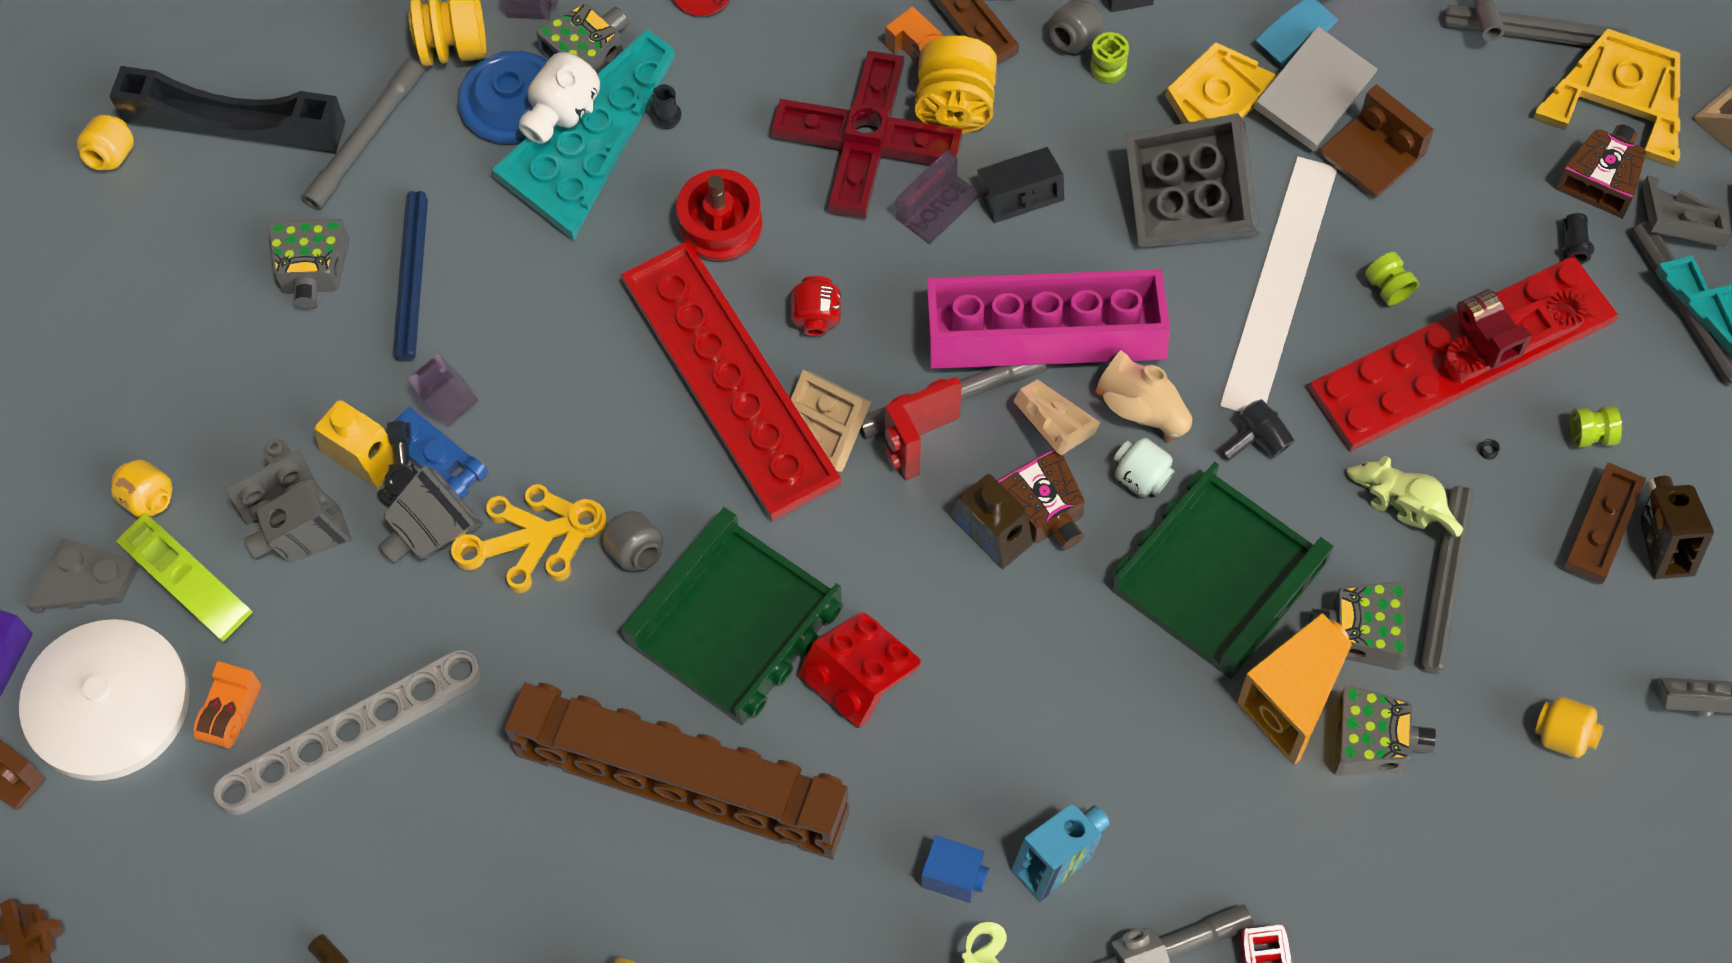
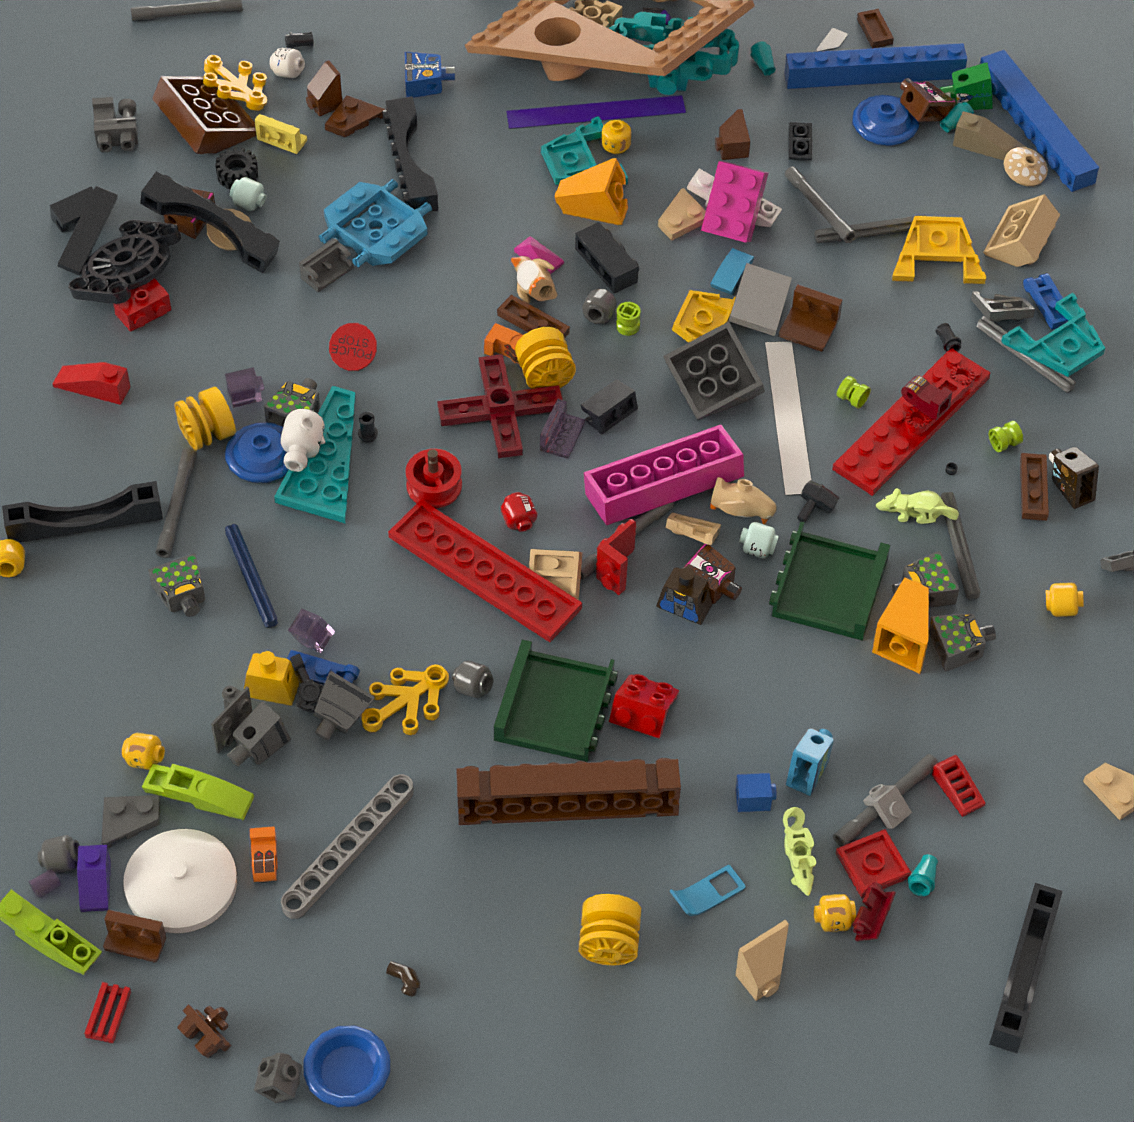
camera: 25 degrees left, 10 degrees down
(1605, 170) = (948, 296): reddish brown torso -> none

